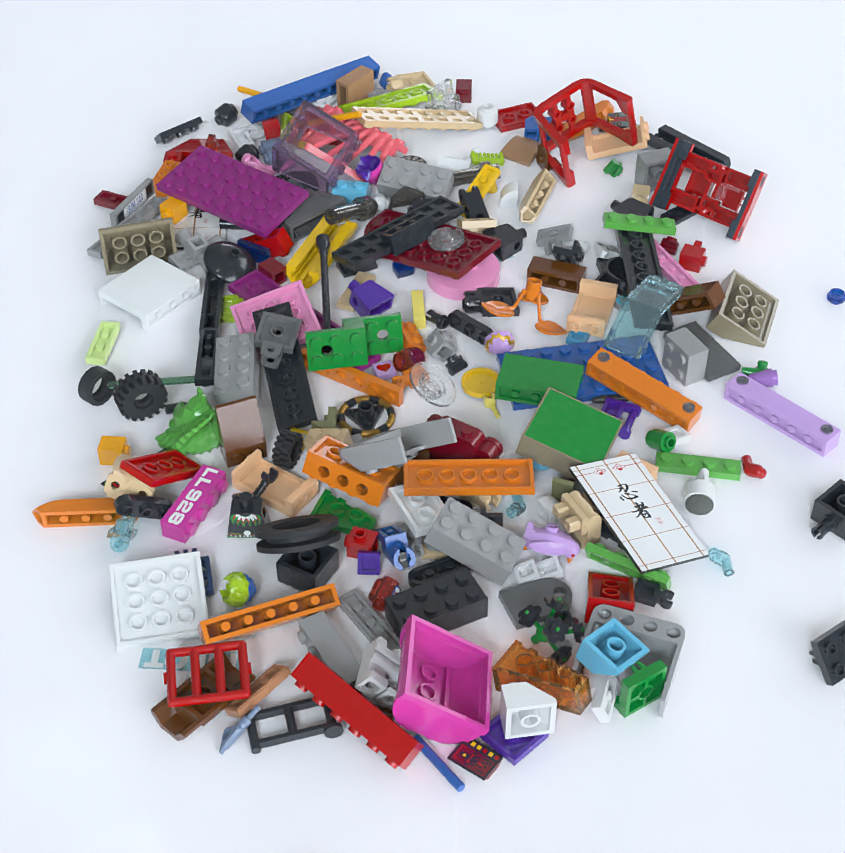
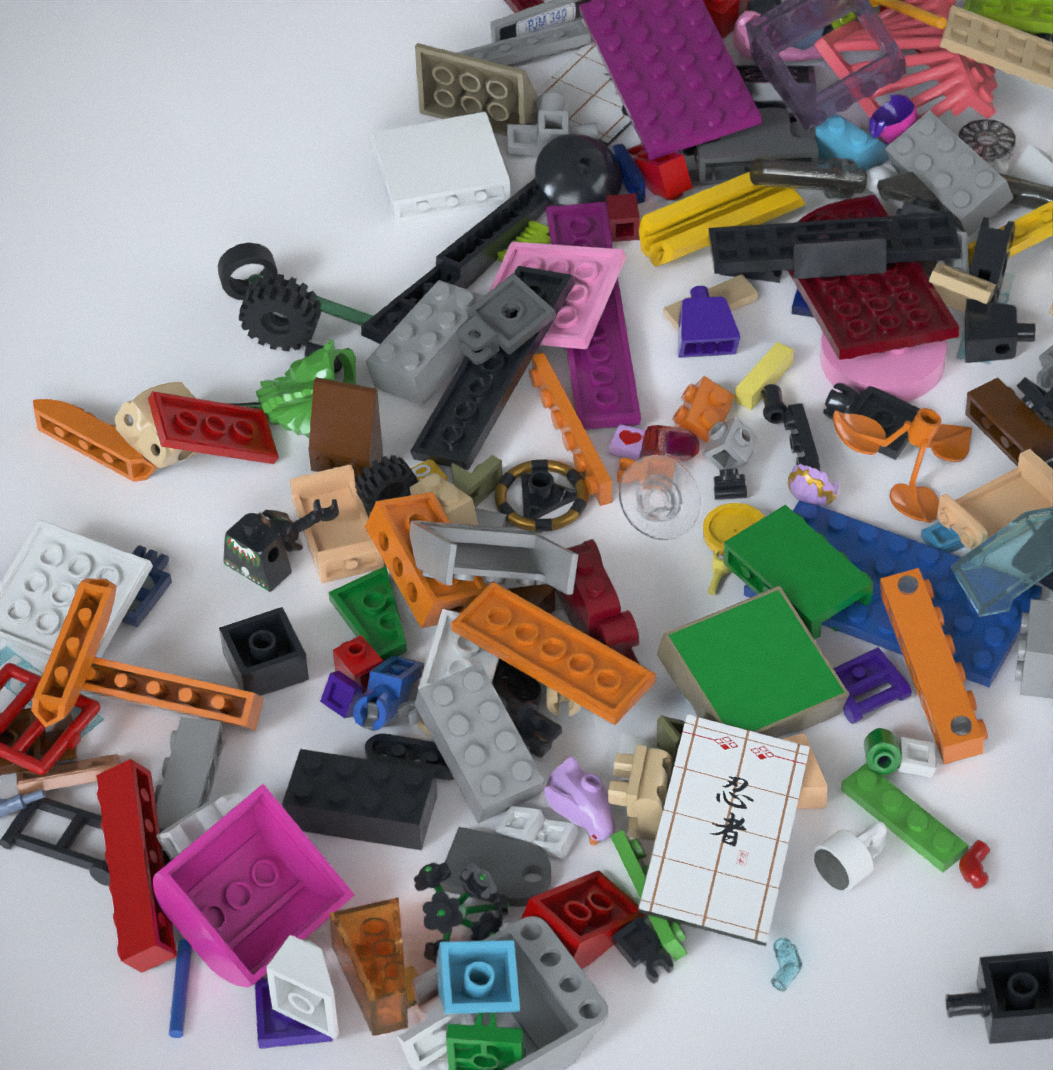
camera: 40 degrees right, 5 degrees up
(103, 343) = (319, 212): yellowish green plate -> none
(111, 447) = (194, 370): light orange brick -> none
(122, 533) = (102, 486): clear light blue hips -> none
(142, 506) = (149, 467): black plate -> none
(173, 208) = (580, 56): light orange brick -> none
(194, 504) = (219, 496): dark pink brick -> none
(214, 615) = (74, 650): none -> orange brick
(239, 590) = (160, 636): lime piece -> none
(297, 534) = (277, 605): black tyre -> none
(323, 245) = (584, 358): black hose -> none
(354, 341) = (600, 379): green bracket -> none
(367, 619) = (276, 755): light grey tile -> none
(381, 589) = (320, 738): clear red head -> none
(446, 239) = (899, 289): clear tile -> none
(476, 758) = (225, 1012): piece -> none
(517, 507) = (597, 732): clear light blue arm -> none
(601, 399) = (889, 650): piece -> none

